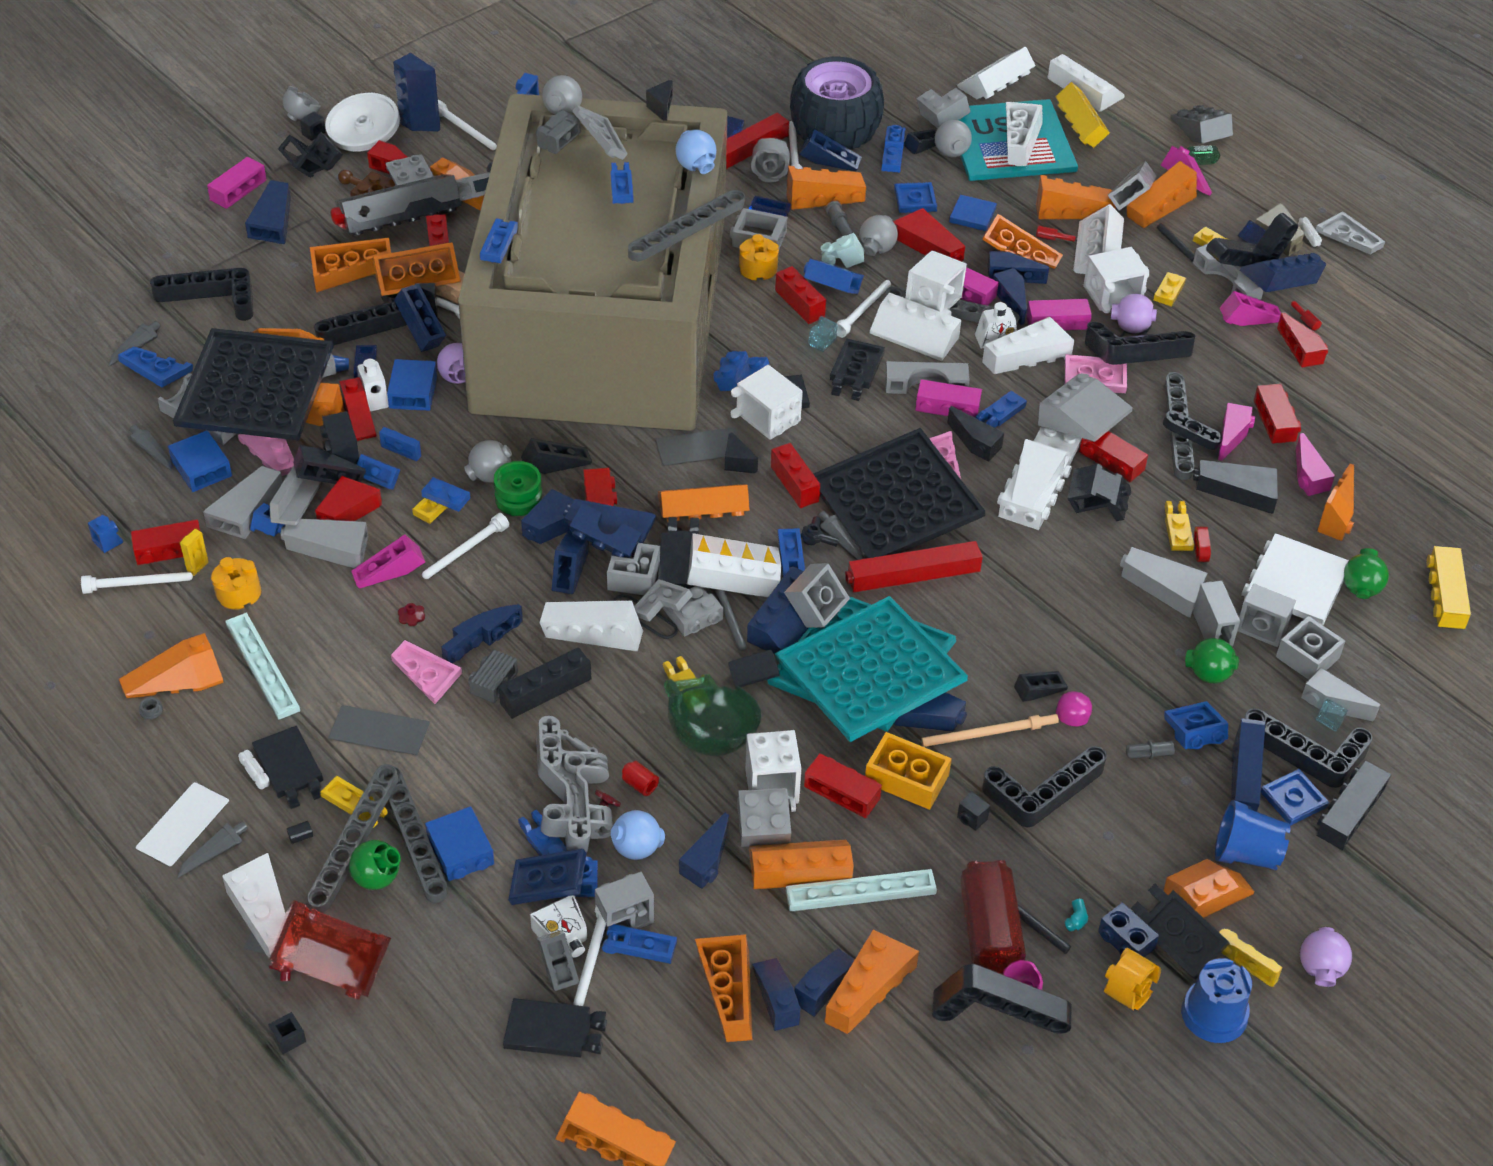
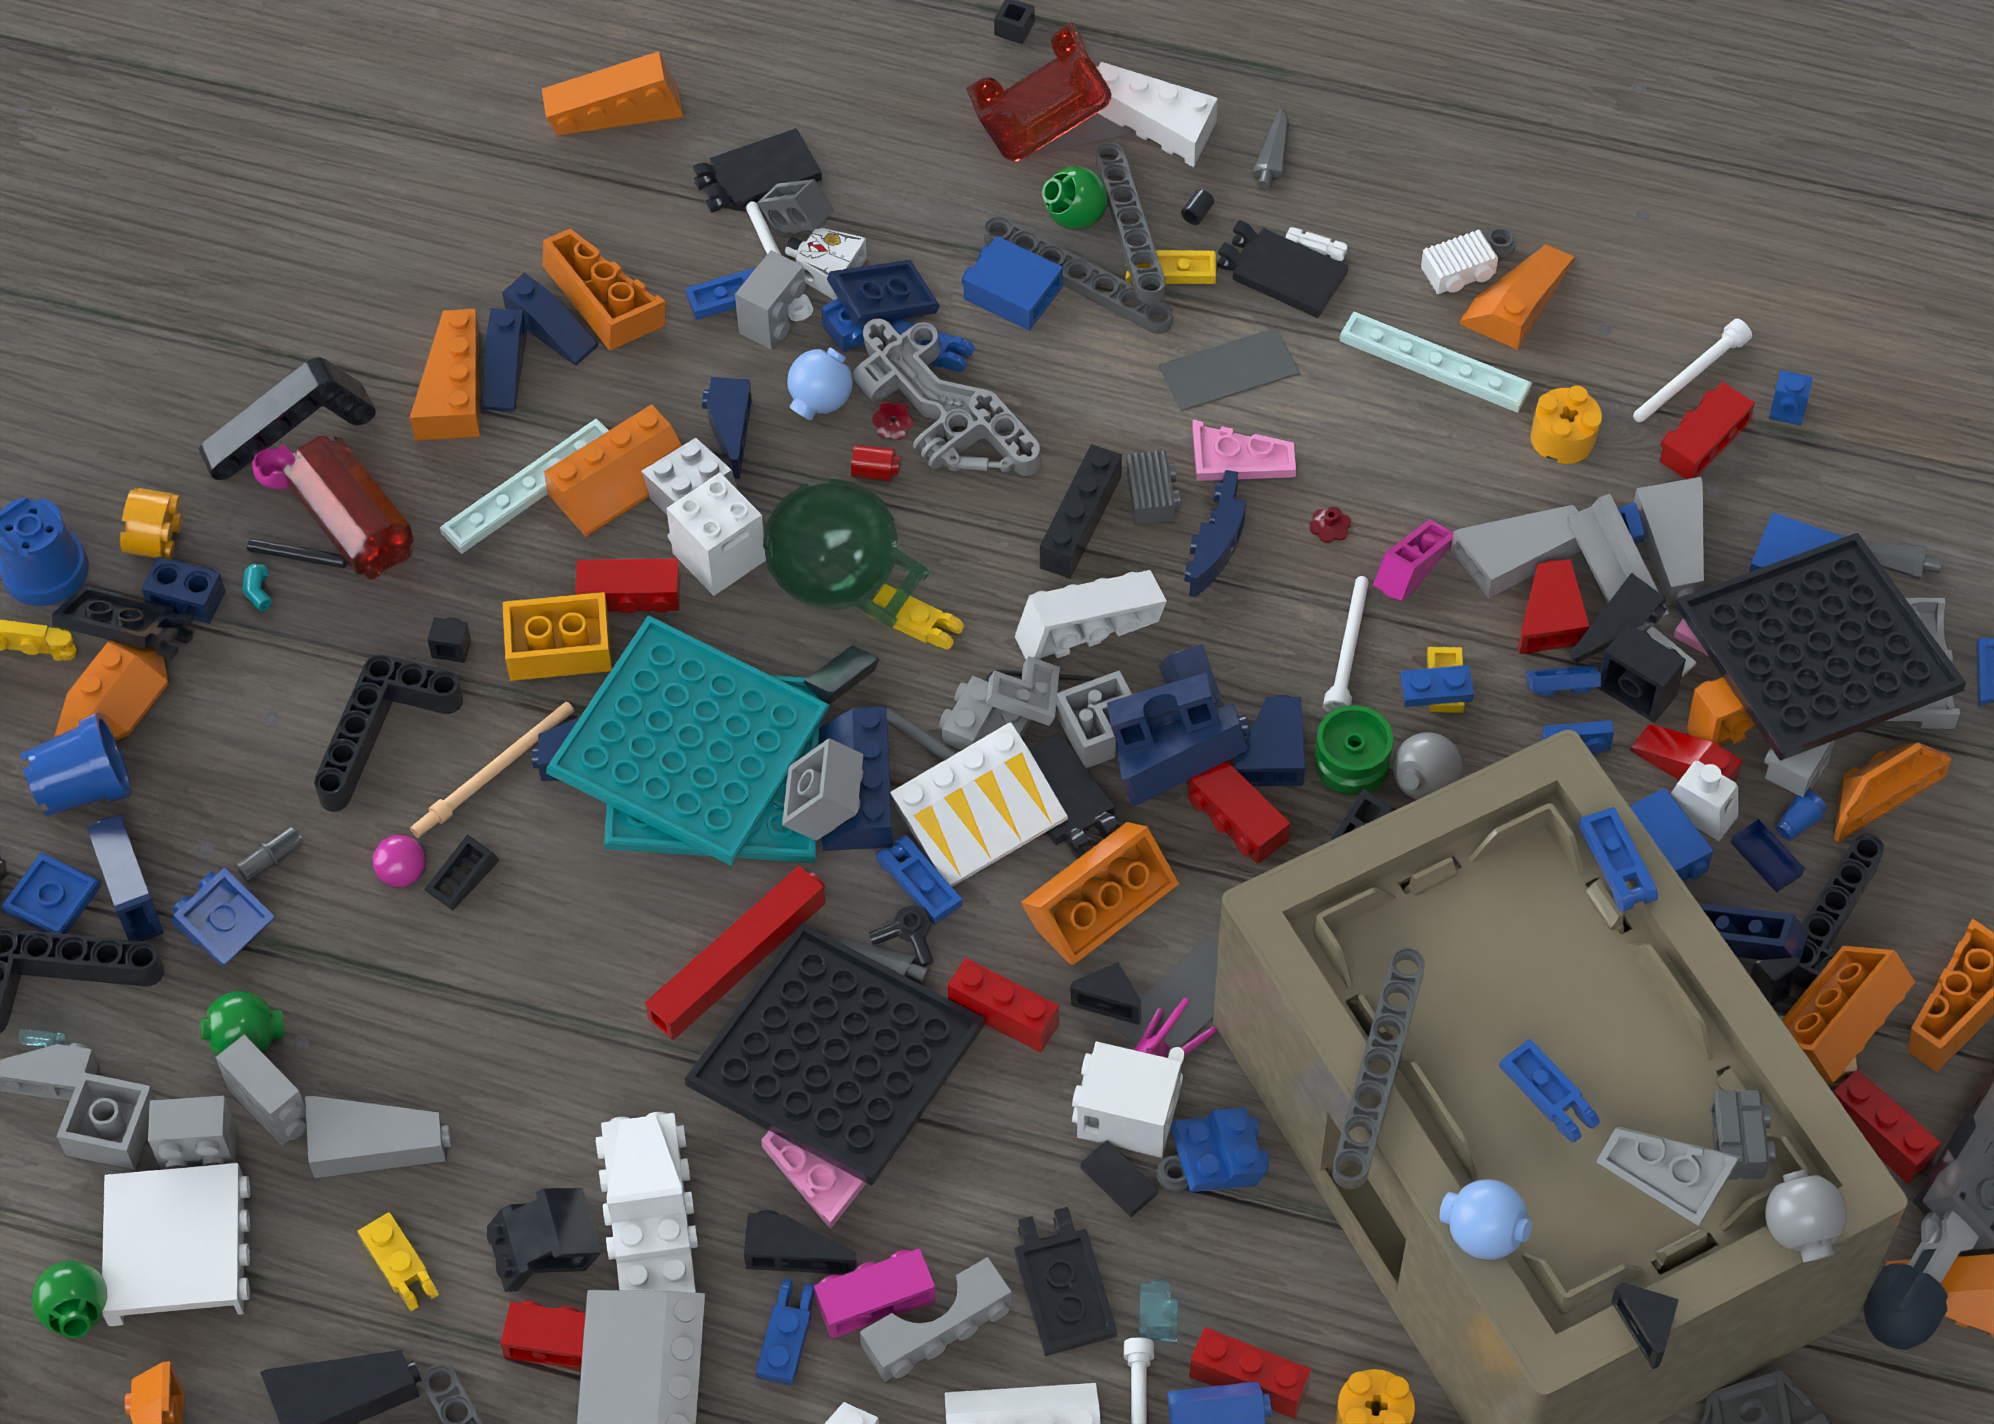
camera: 150 degrees right, 10 degrees up
(182, 824) = (1334, 159): white sticker -> none
(188, 704) = (1459, 262): none -> white brick
(194, 552) = (1650, 421): yellow plate -> none
(737, 423) = (1156, 1045): none -> dark pink plant
(1202, 544) = (345, 1237): red beam -> none

